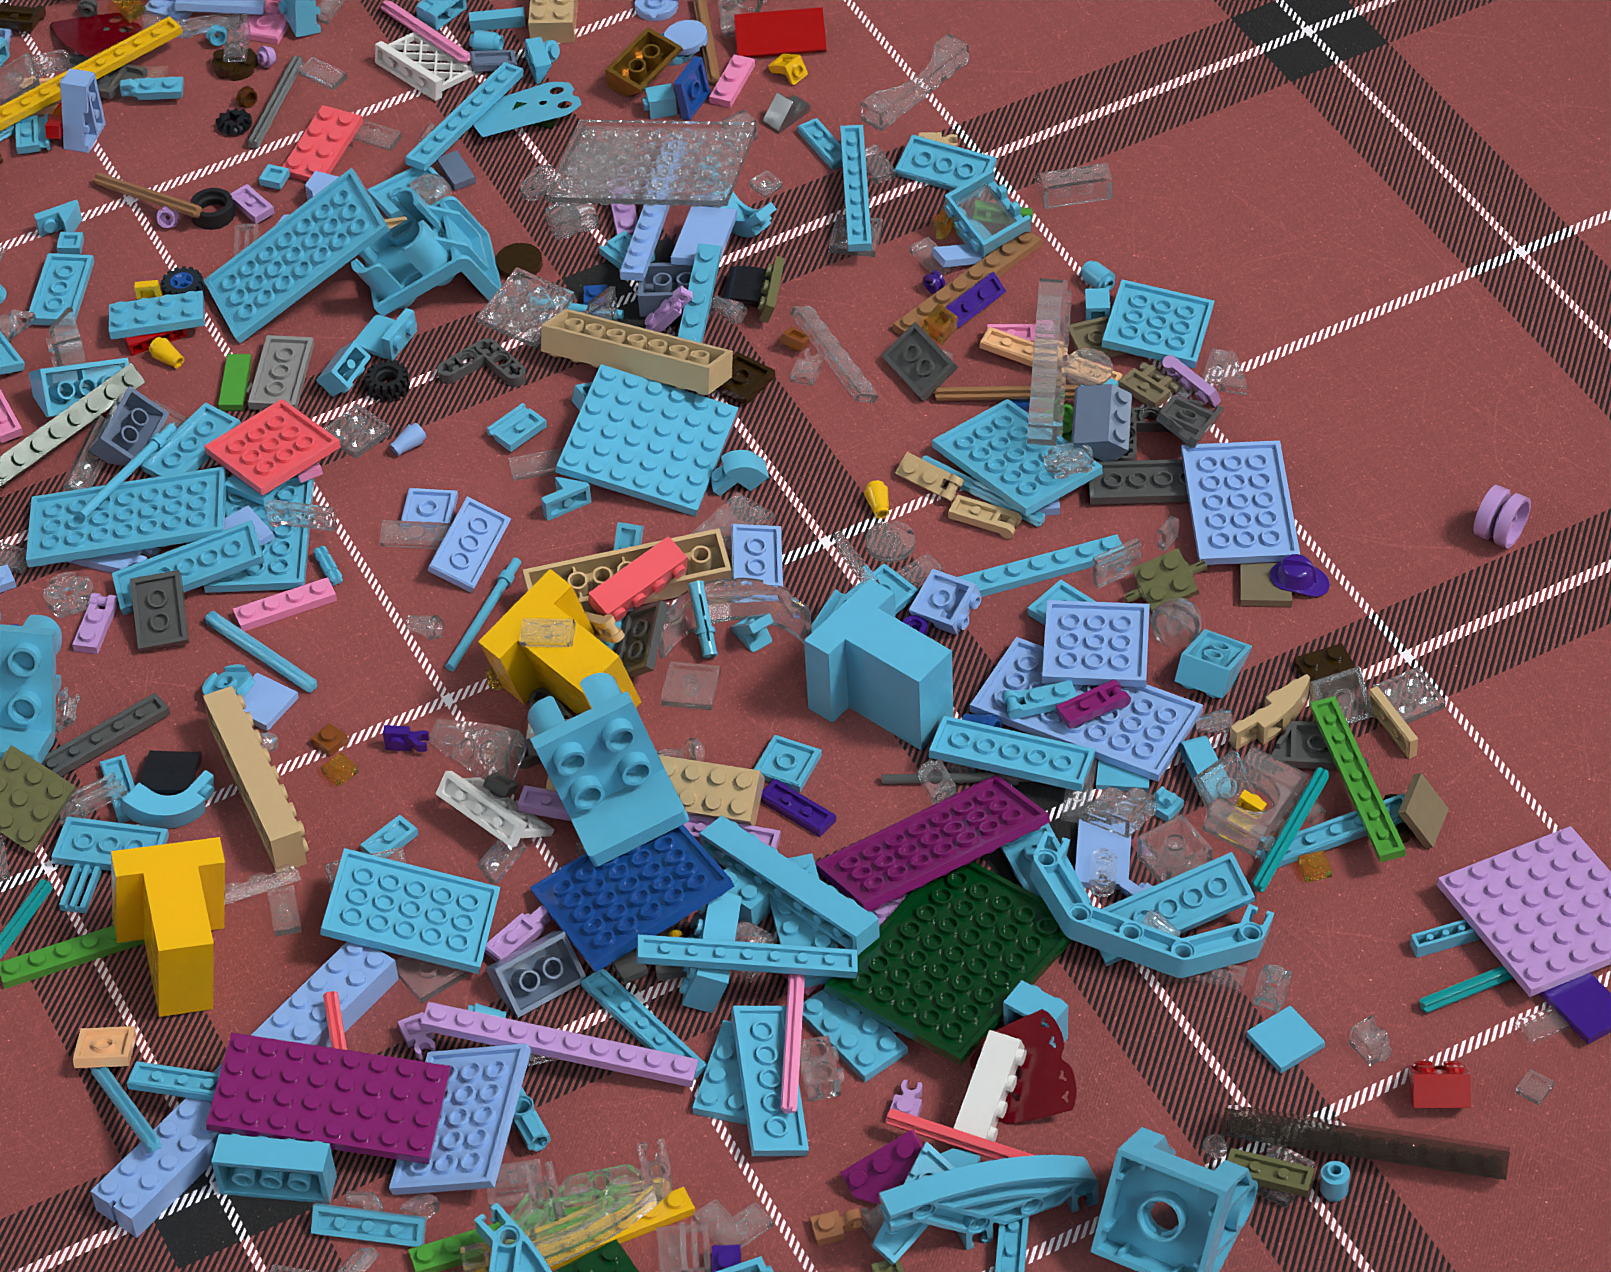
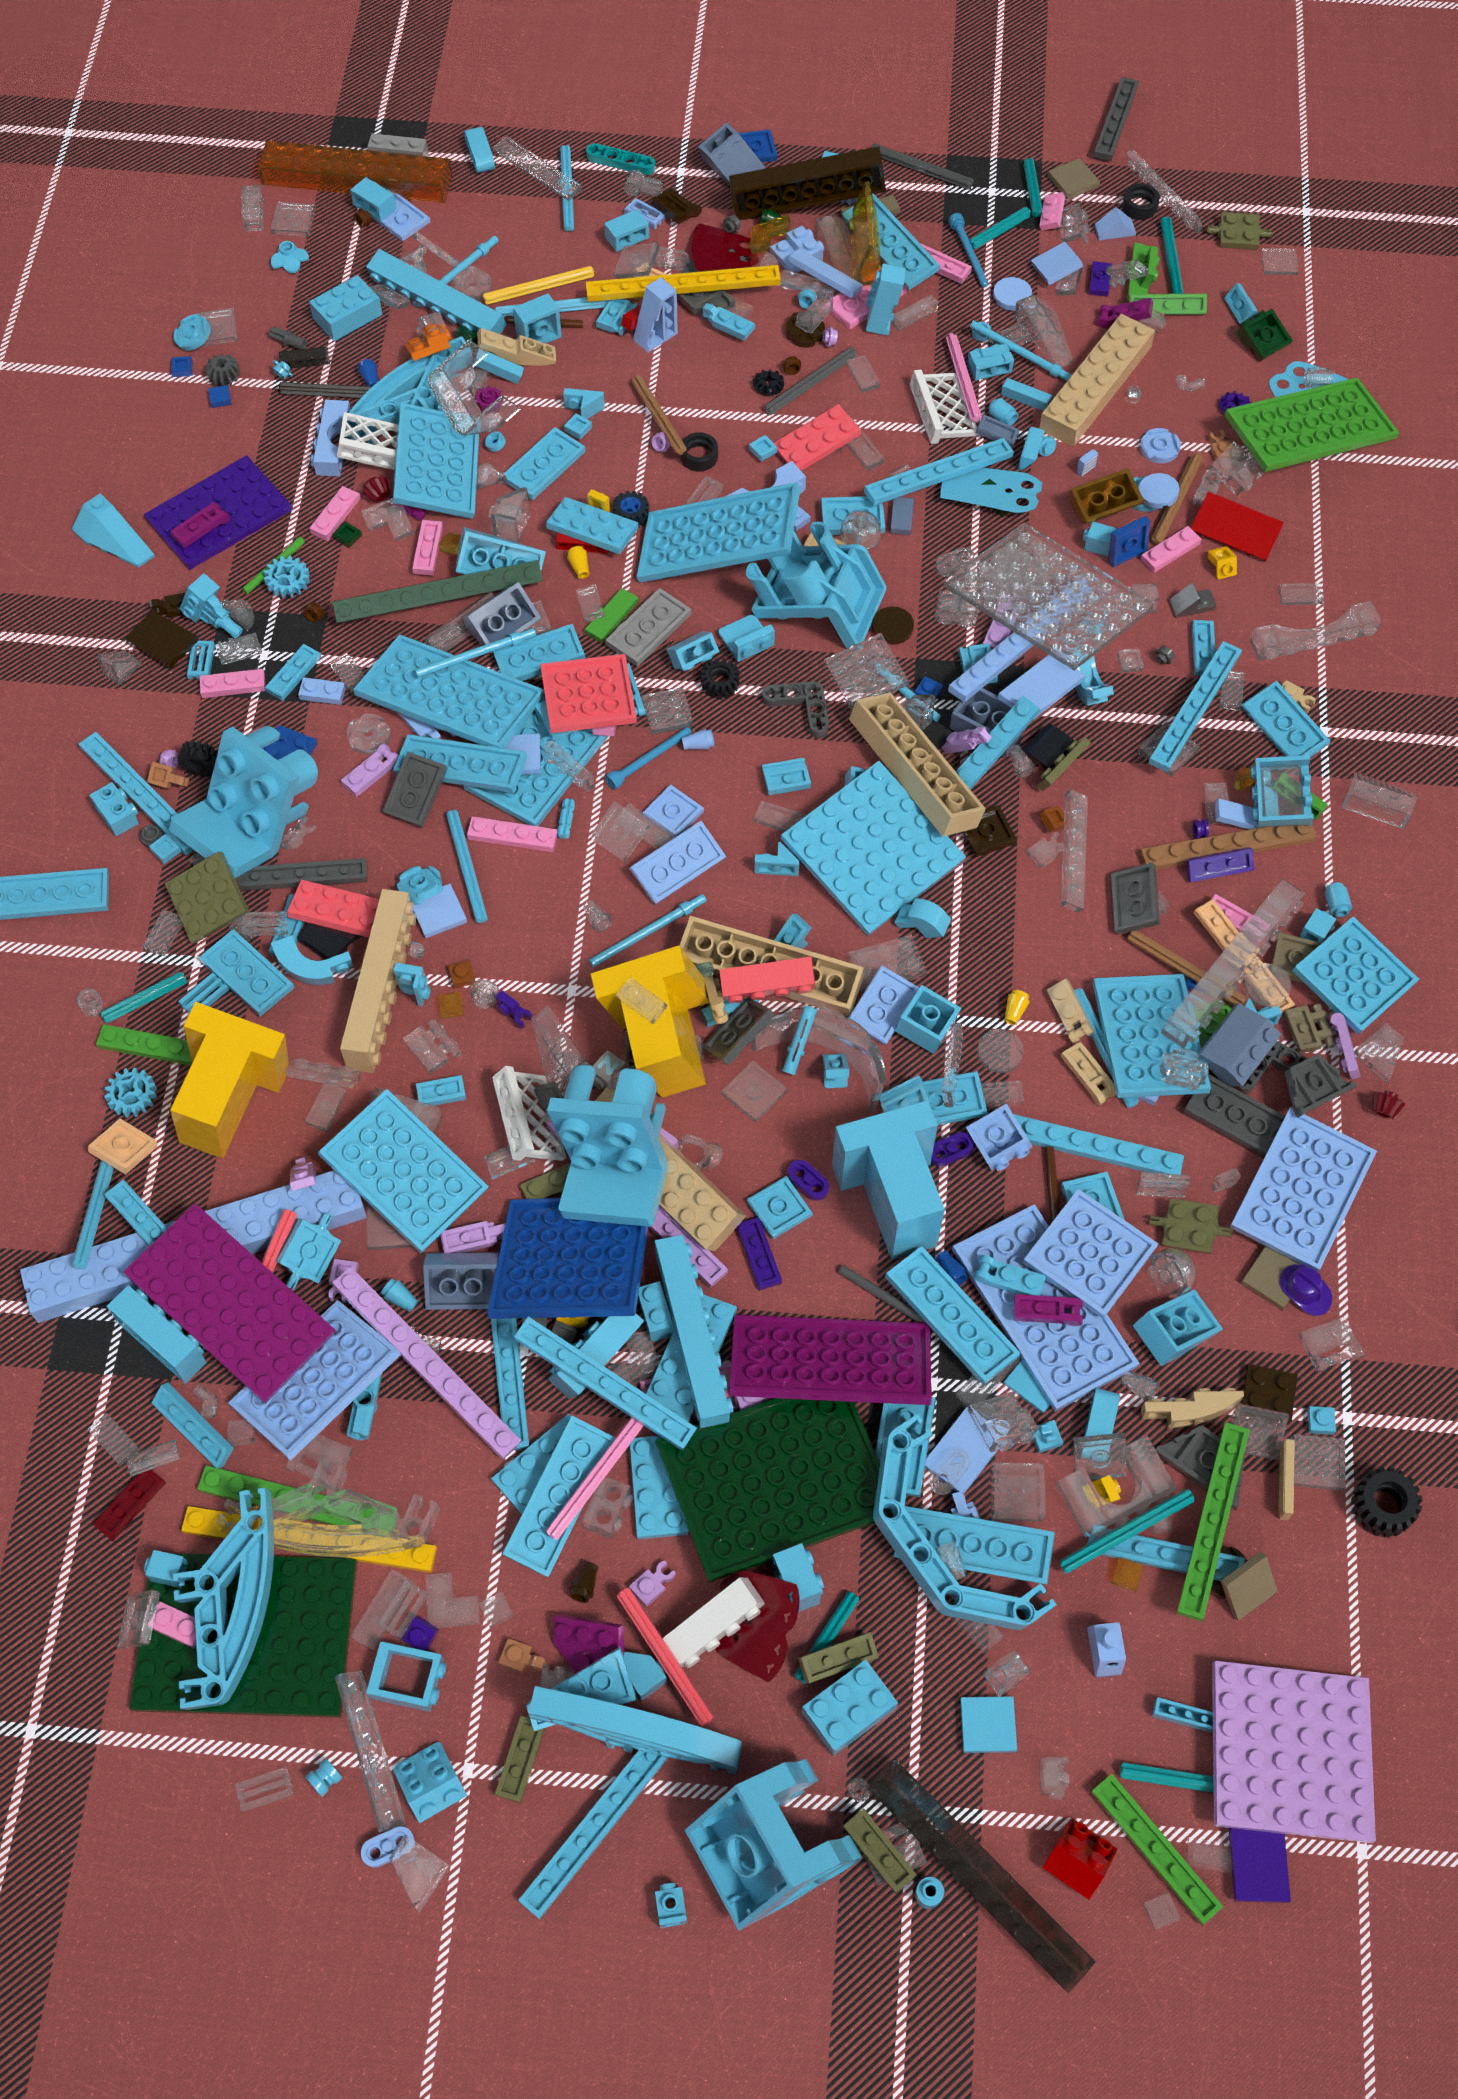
camera: 30 degrees right, 15 degrees up
(21, 398) = (450, 544): none -> clear yellow plate
(75, 1001) = (131, 1095): none -> medium azure gear
(161, 747) = (333, 908): none -> coral plate
(207, 380) = (590, 603): none -> clear tile
(252, 204) = (730, 463): lavender plate -> none
(290, 761) = (412, 981): none -> medium azure bracket
(313, 964) = (302, 1174): none -> lavender hinge
(348, 815) = (426, 1050): none -> clear plate
(352, 509) = (616, 778): none -> dark azure piece
(366, 739) = (483, 993): none -> clear cone
(369, 1021) = (308, 1250): none -> medium azure plate
(392, 547) = (619, 831): none -> clear tile
(558, 854) = (546, 1185): none -> olive plate
(599, 46) = (1087, 462): none -> light blue tile
(780, 1204) = (496, 1609): none -> clear tile
(793, 164) = (1164, 655): none -> dark grey plate
(797, 726) = (809, 1180): none -> dark purple plate
(807, 545) = (927, 1019): none -> medium azure brick
(846, 1139) = (584, 1583): none -> dark brown cone
(878, 61) = (1301, 593): none -> clear tile
(938, 791) = (881, 1311): clear brick -> none
(940, 323) = (1176, 873): clear yellow brick -> none
(1018, 616) = (1052, 1182): none -> reddish brown bar
(1095, 1055) = (832, 1627): none -> teal axle
(1118, 1059) = (838, 1657): none -> olive plate
(1158, 1090) = (849, 1707): none -> medium azure brick
(1260, 406) = (1386, 1104): none -> dark red piece
(1341, 922) = (1107, 1648): none -> light blue torso
(1346, 603) = (1329, 1337): none -> clear plate
(1387, 666) = (1321, 1420): none -> medium azure plate
(1483, 706) = (1400, 1489): none -> black tyre
(1496, 1043) = (1157, 1849): none -> bright green plate

